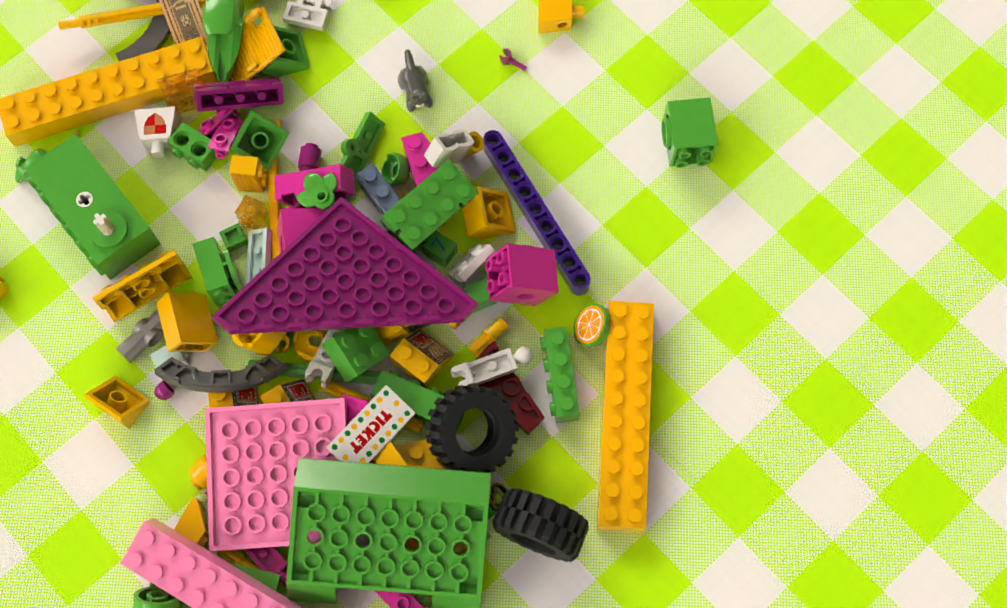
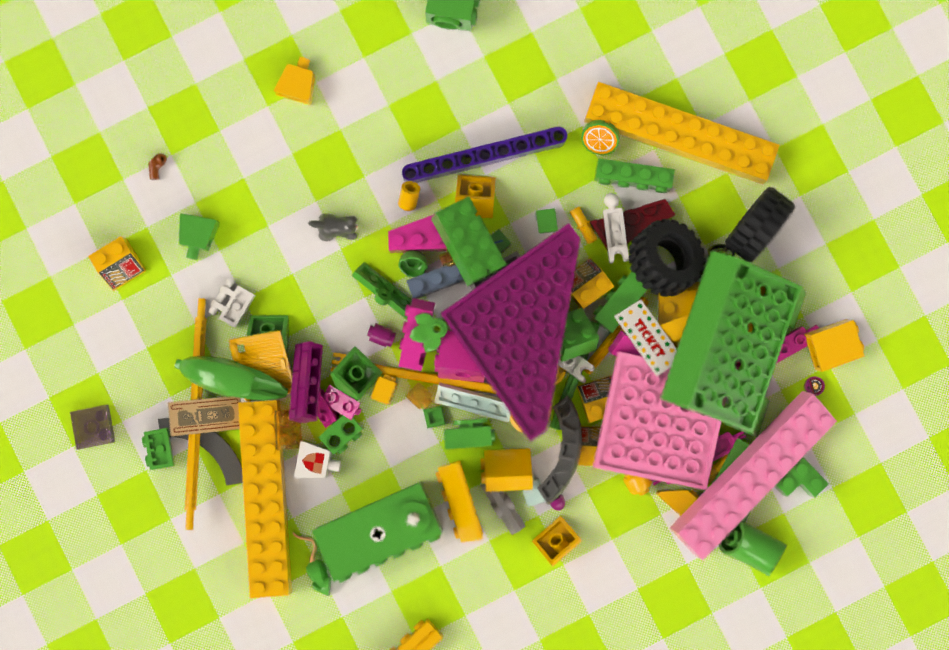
camera: 70 degrees left, 15 degrees up
(449, 146) = (416, 210): white brick -> none
(474, 258) = (517, 221): white plate -> none
(509, 60) = (333, 135): magenta hand -> none
(521, 274) = (545, 181): dark pink brick -> none

